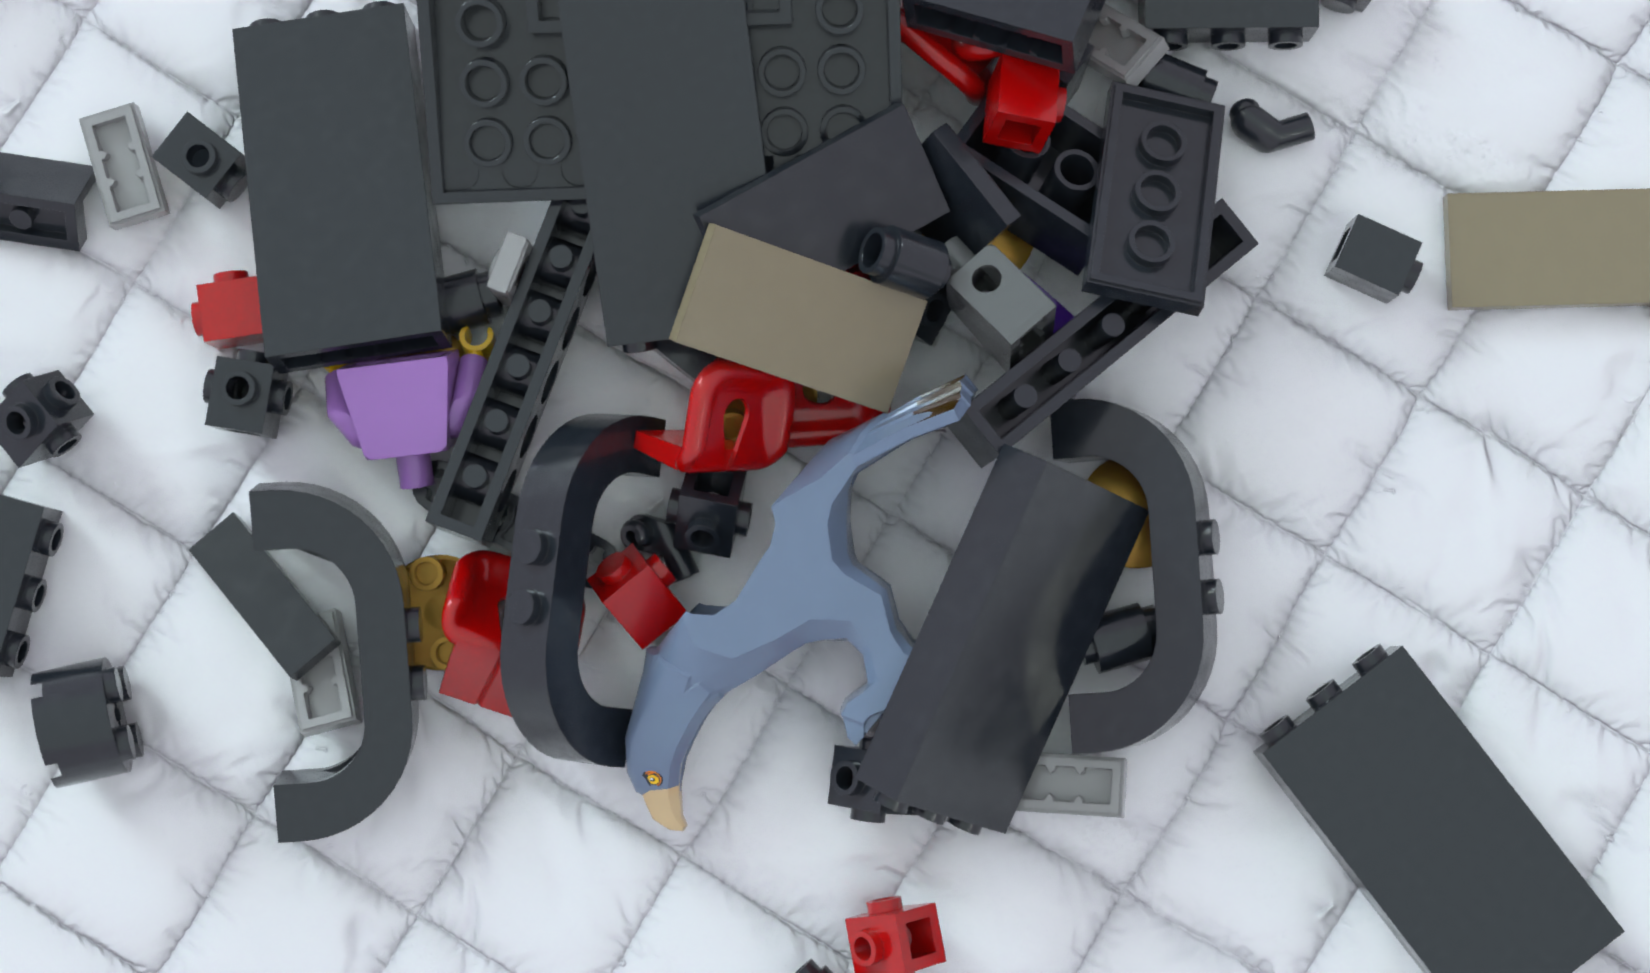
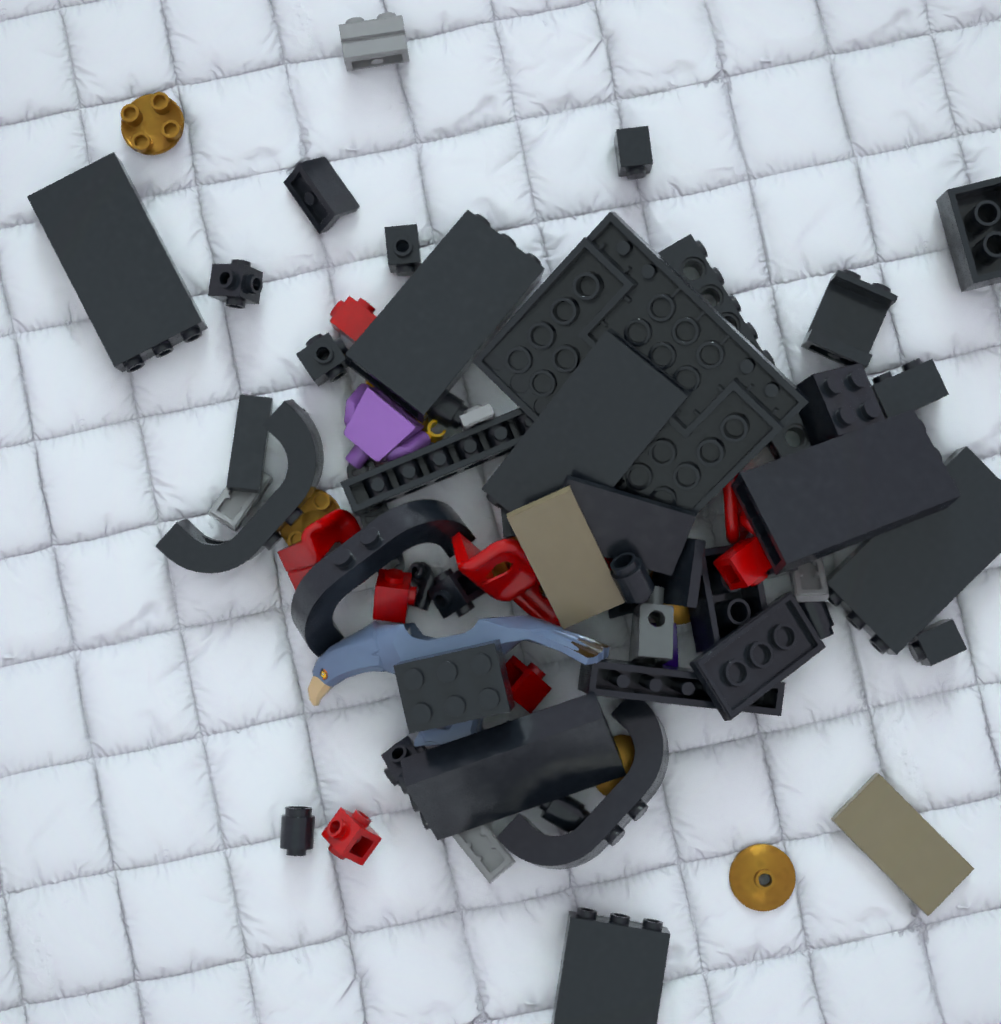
camera: 40 degrees right, 0 degrees up
(84, 721) = (130, 421): black brick -> none
(124, 166) = (370, 218): light grey plate -> none
(827, 617) = (454, 686): none -> black brick
(907, 533) = (526, 683): none -> red brick
(1266, 132) = (832, 673): black arm -> none
(1375, 260) = (821, 769): black brick -> none
(1412, 471) = (750, 865): none -> pearl gold dish

